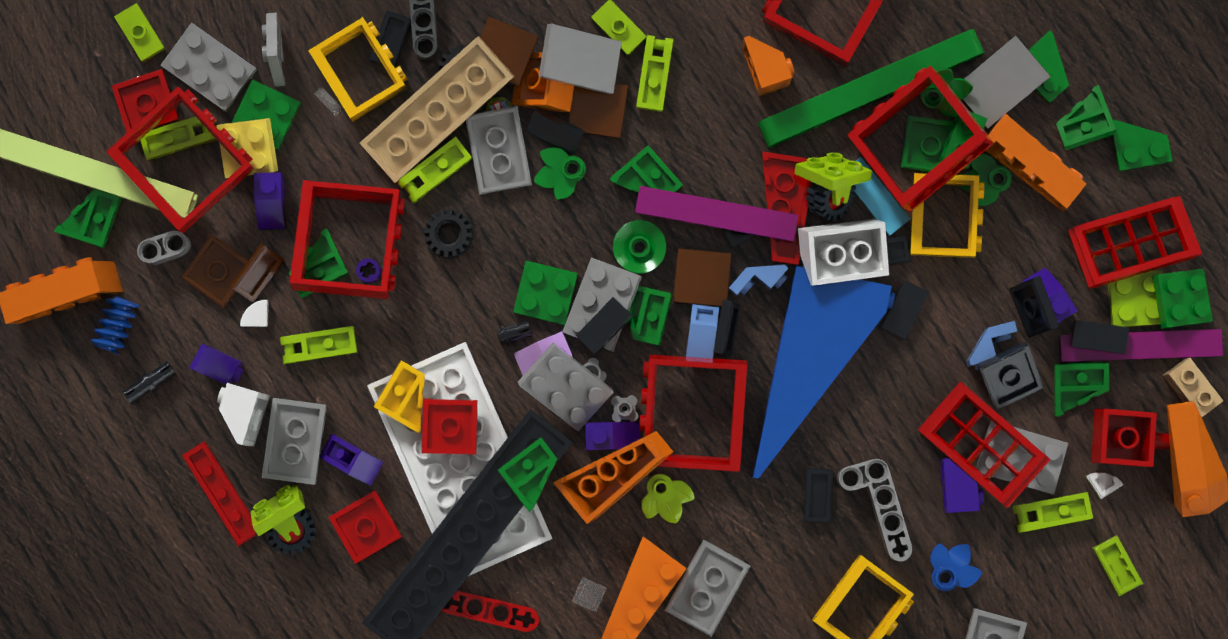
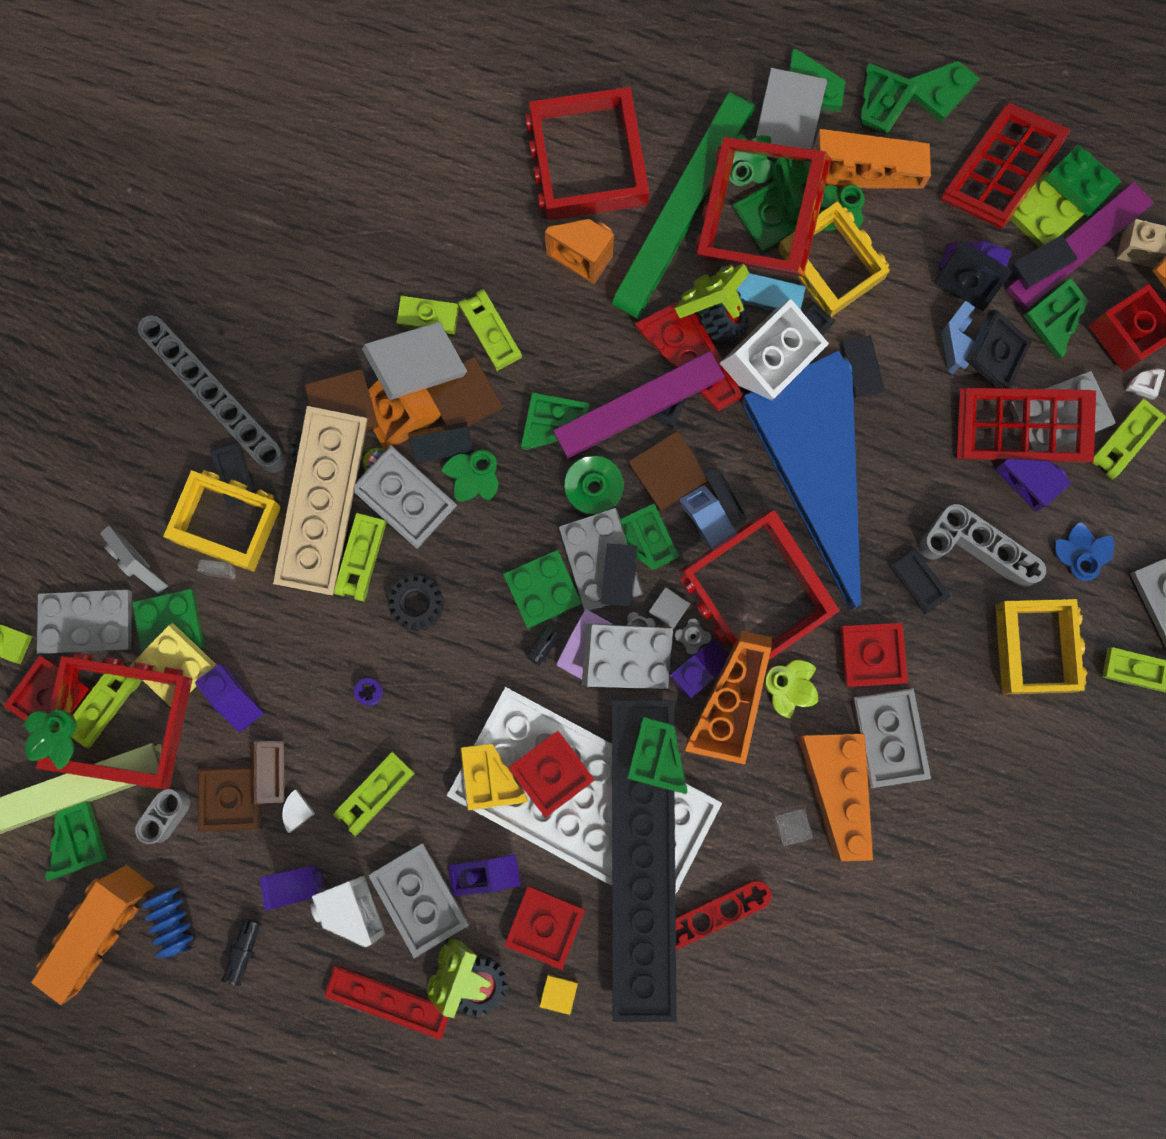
camera: 45 degrees left, 5 degrees down
(127, 138) = (48, 739): none -> green plate
(314, 189) = (297, 635): red window -> none
(324, 262) = (320, 723): green wing -> none
(340, 579) = (559, 994): none -> yellow tile
(624, 376) = (669, 608): none -> light grey tile
(741, 521) = (874, 655): none -> red plate
(766, 275) = (724, 427): medium blue slope -> none

